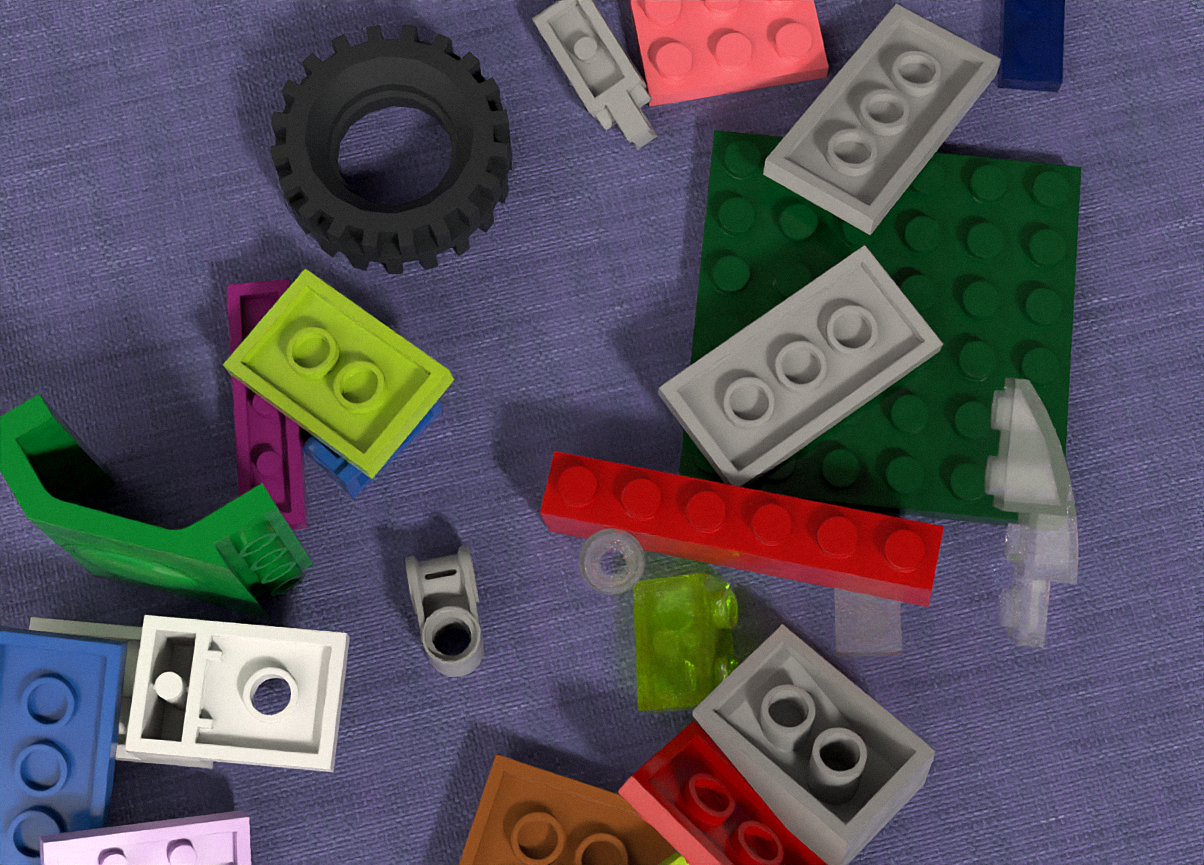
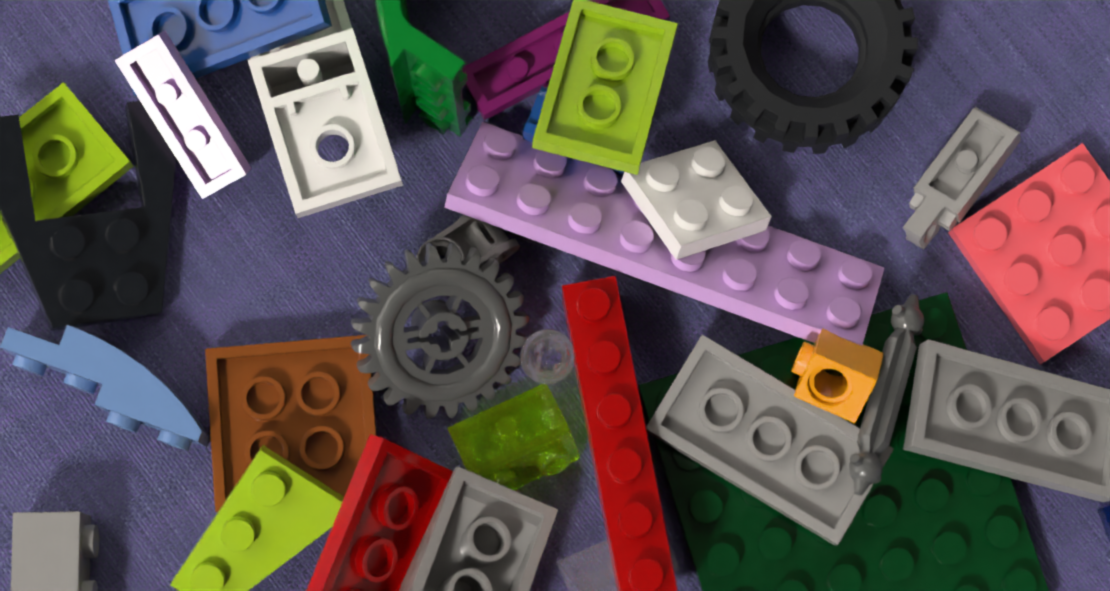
camera: 65 degrees right, 5 degrees up
(505, 690) = (389, 339): none -> dark grey gear
(506, 334) = (696, 199): none -> white plate
(530, 389) = (592, 216): none -> lavender plate
(785, 268) = (836, 394): none -> light orange brick
(806, 227) = (886, 395): none -> dark grey wheel

